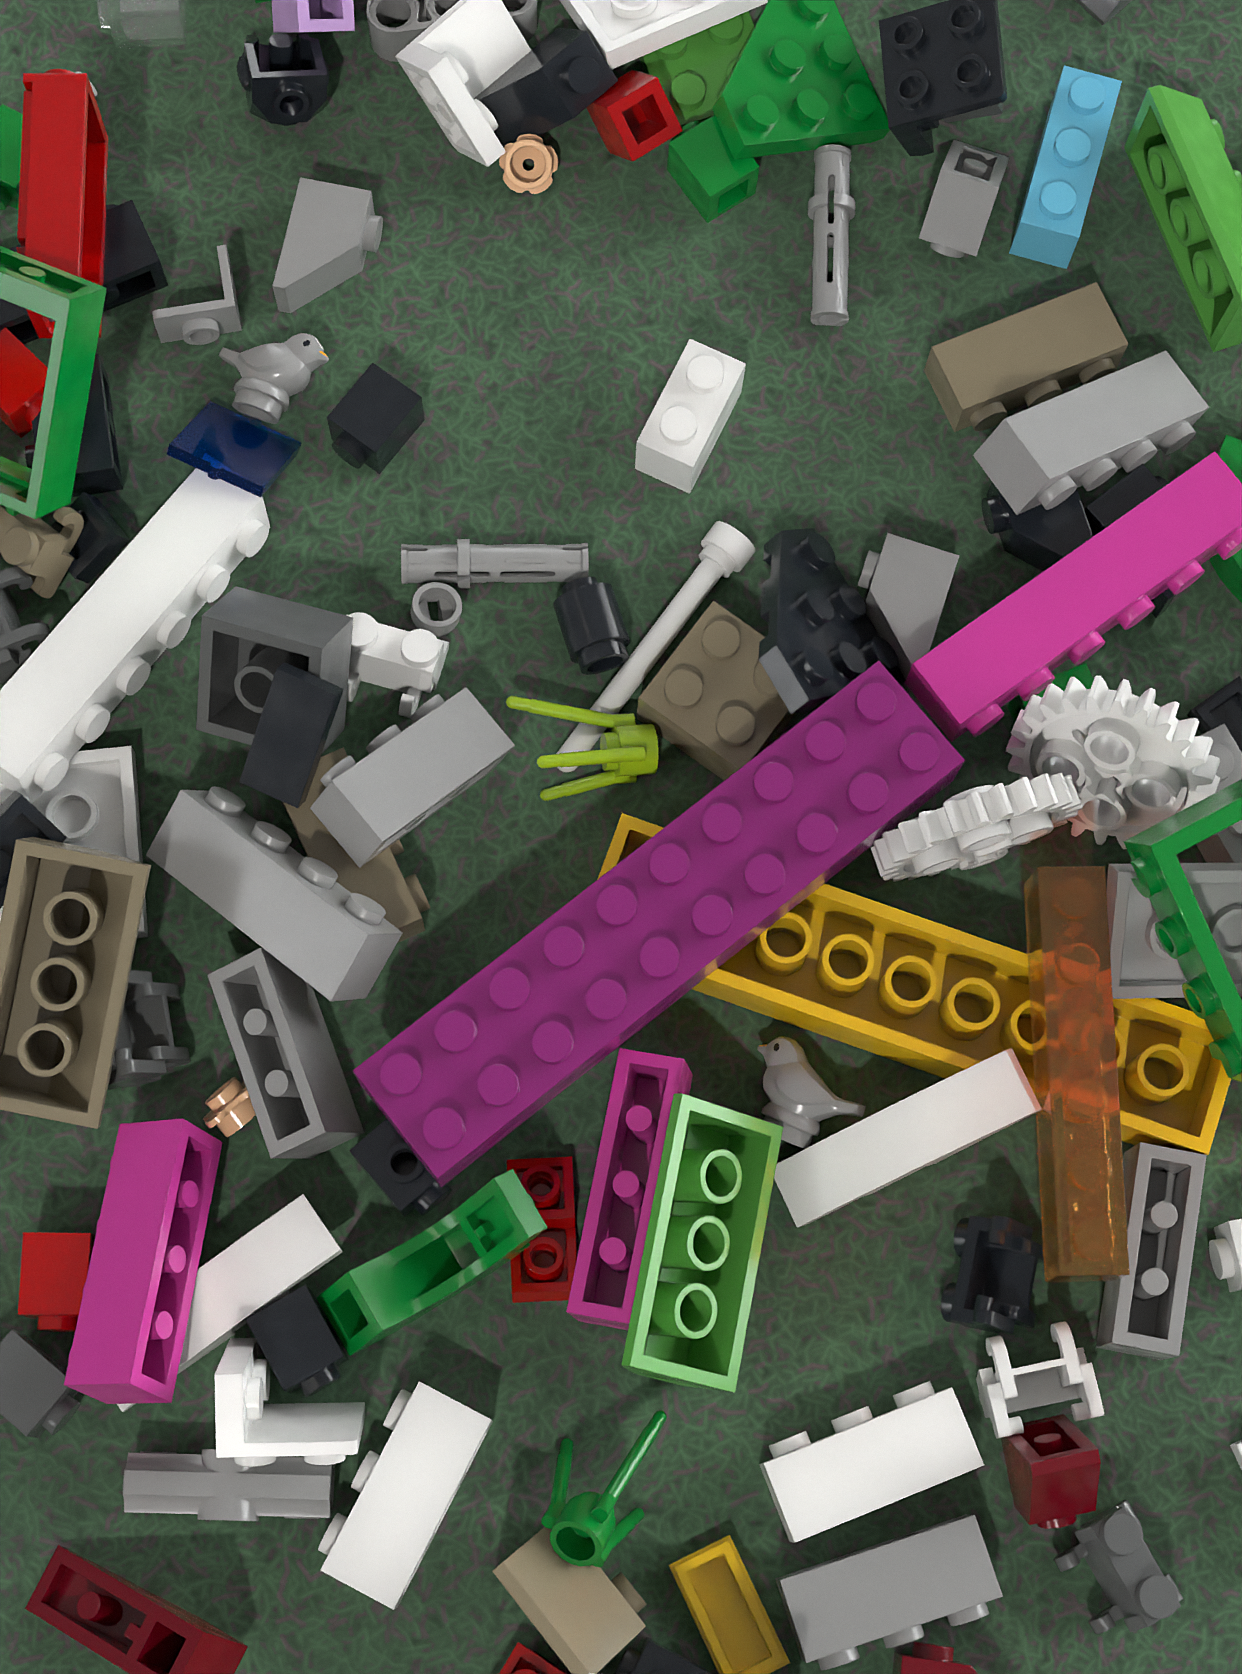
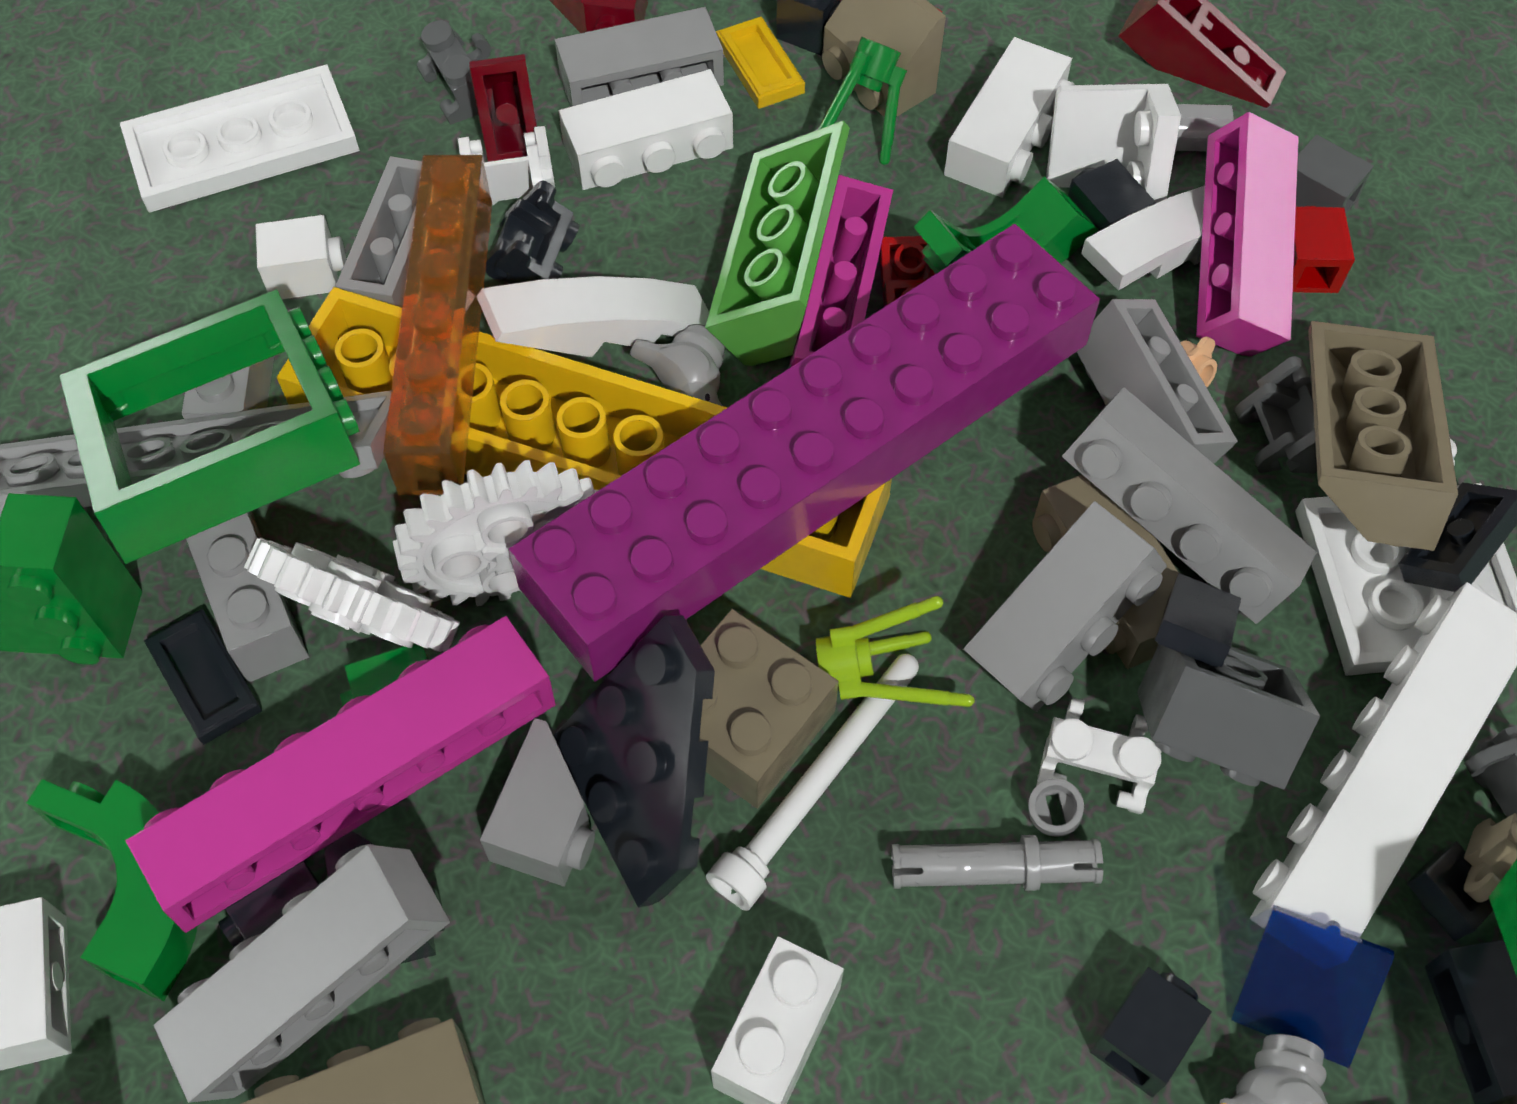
camera: 175 degrees left, 15 degrees down
(592, 625) = (886, 788): black brick -> none

